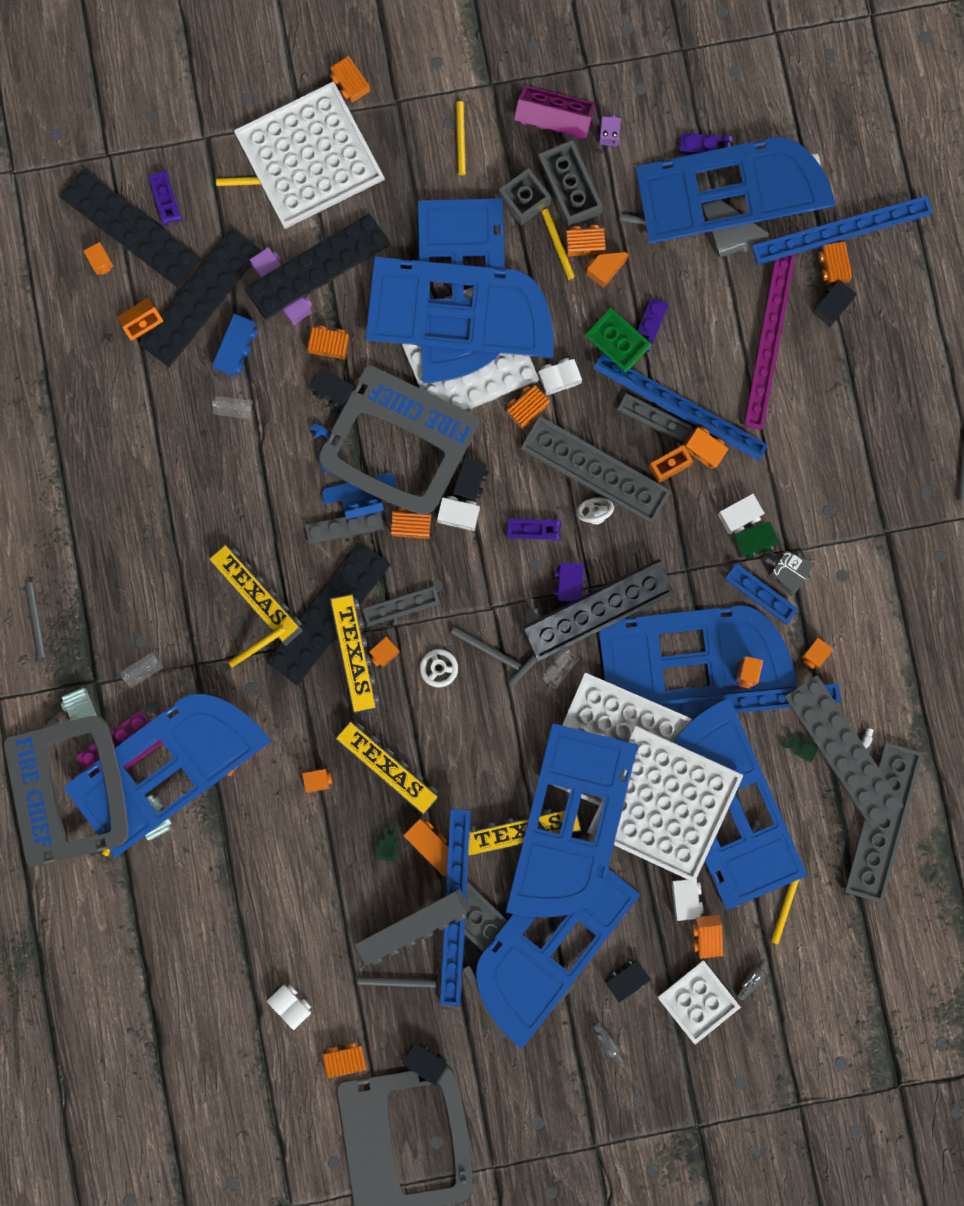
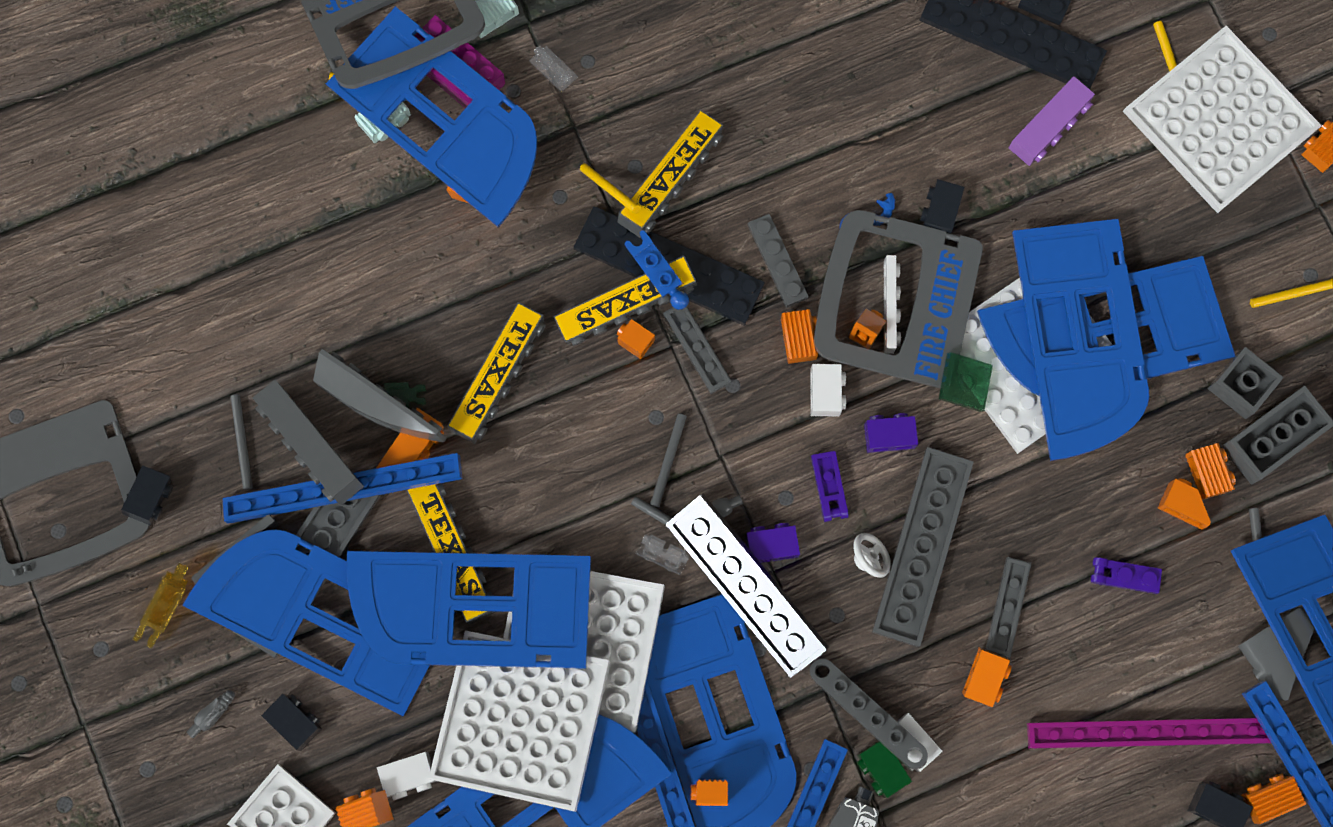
camera: 75 degrees right, 5 degrees down
(232, 407) = (890, 99): clear hinge -> none
(235, 346) = (965, 85): blue brick -> none
(290, 1006) = (190, 321): white brick -> none
(317, 266) = (1088, 156): black plate -> none
(317, 780) = (464, 294): orange brick -> none
(328, 342) = (997, 191): orange brick -> none
(338, 621) = (658, 271): none -> blue plate
(344, 1060) = (136, 400): orange brick -> none
(355, 500) = (813, 265): blue plate -> none
(390, 870) = (370, 400): none -> dark grey wedge
(408, 449) = (891, 294): none -> white plate
(417, 469) = (867, 328): none -> orange slope
(433, 654) = (615, 401): white piece -> none
(470, 480) = (871, 395): black brick -> none
(478, 406) = (965, 382): none -> clear green tile
(504, 473) = (890, 433): none -> dark purple brick
(515, 1066) = (162, 604): none -> clear yellow hinge
(527, 406) = (981, 444): orange brick -> none
(557, 243) = (1197, 439): yellow bar -> none
(559, 376) = (1029, 476): white brick -> none
(618, 340) = (1095, 538): green plate -> none
(670, 464) = (954, 637): orange brick -> none
(682, 407) = (1031, 637): blue plate -> none
(714, 541) = (868, 714): none -> dark grey plate

